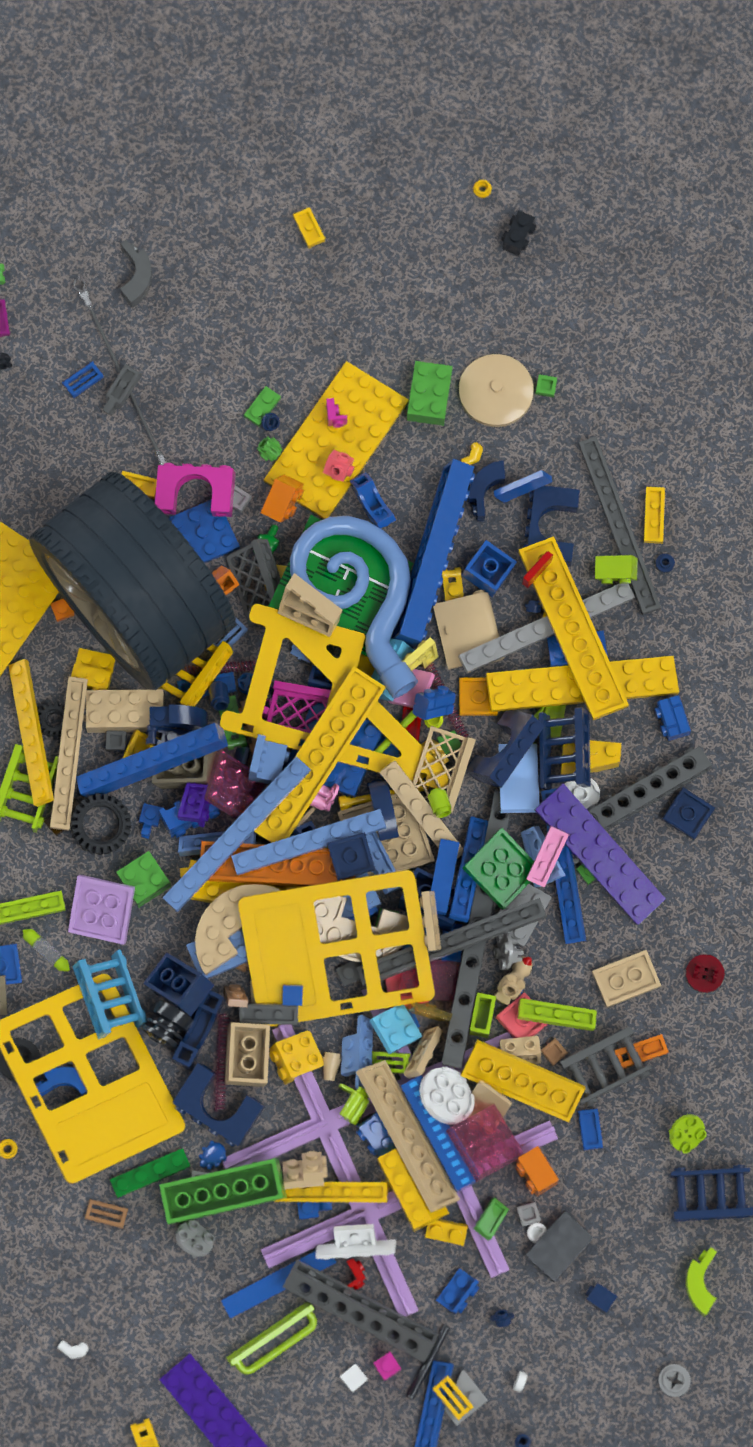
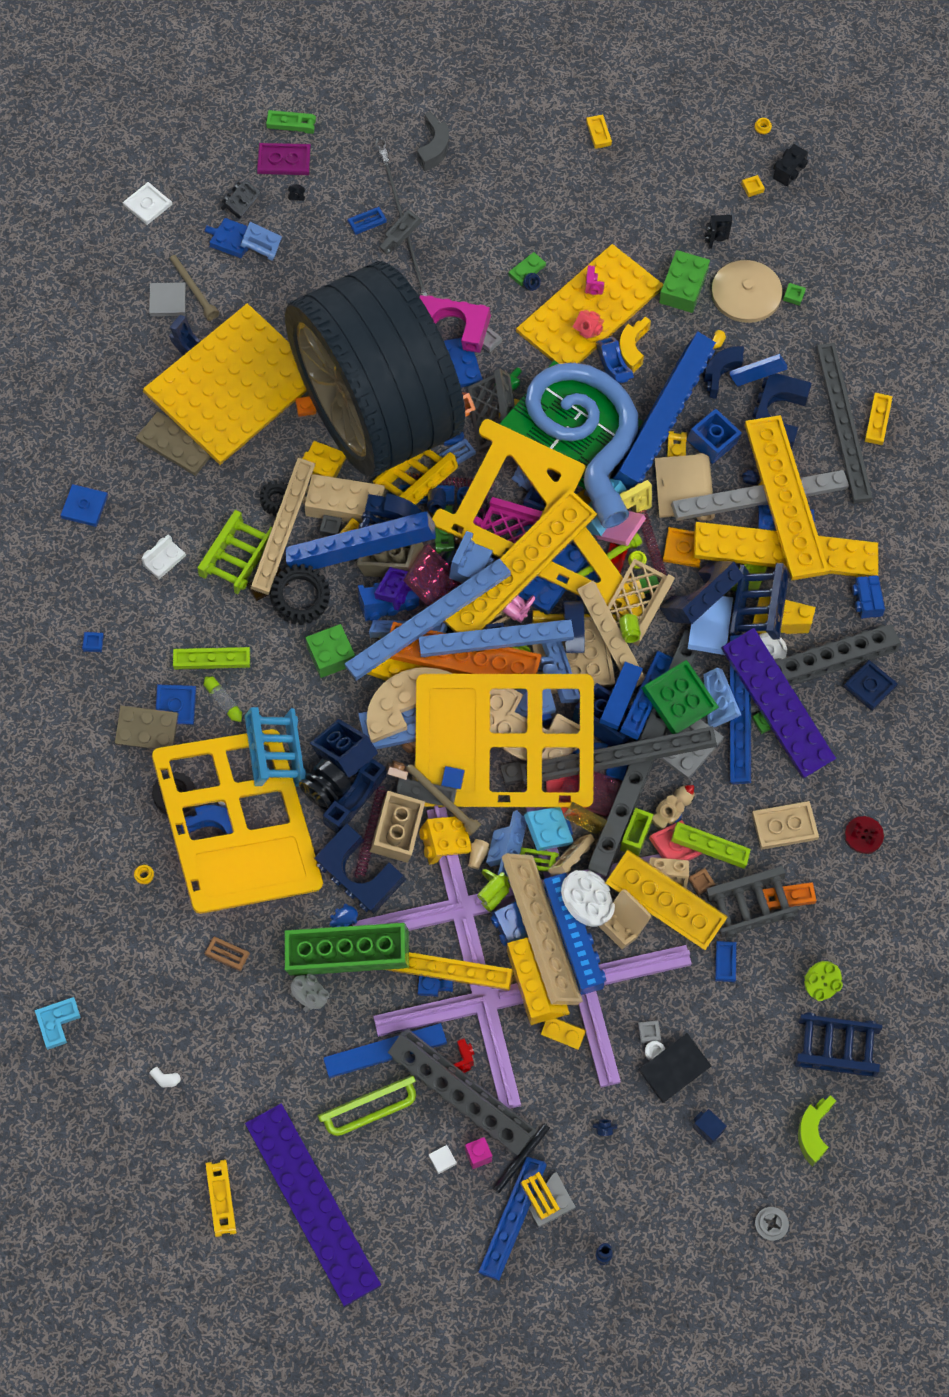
camera: 10 degrees right, 10 degrees down
(31, 733) = (251, 503): yellow plate -> none
(101, 909) = (284, 669): lavender plate -> none
(149, 817) = (346, 600): blue plate -> none
(150, 1173) = (278, 923): green plate -> none
(269, 449) = (526, 302): bright green gear -> none
(282, 498) = (530, 342): orange brick -> none
(305, 1172) = (437, 947): tan plate -> none
(309, 607) = (537, 428): tan wedge -> none
(318, 1039) = (470, 824): none -> dark tan piece
(351, 856) = (535, 655): dark blue plate -> none
(354, 1242) = (469, 1021): white bracket -> none
(386, 488) = (629, 338): none -> yellow arch
(430, 920) = (601, 729): tan plate -> none
(434, 703) = (640, 540): blue brick -> none
(454, 325) = (717, 229): none -> black bracket
(458, 1291) = (564, 1093): blue bracket -> none
(483, 264) = (753, 186): none -> yellow plate
(485, 1142) = (618, 949): clear pink plate -> none
(491, 1218) = (610, 1027): bright green tile -> none
(506, 951) = (670, 776): light grey plate -> none
(520, 1381) = (612, 1194): white tile -> none
(537, 569) = (760, 437): red tile -> none
(537, 1171) = (665, 989): orange brick -> none
(547, 856) = (726, 692): bright pink plate -> none
(616, 568) = (835, 455): lime brick -> none
(665, 568) = (880, 465): dark blue plate -> none

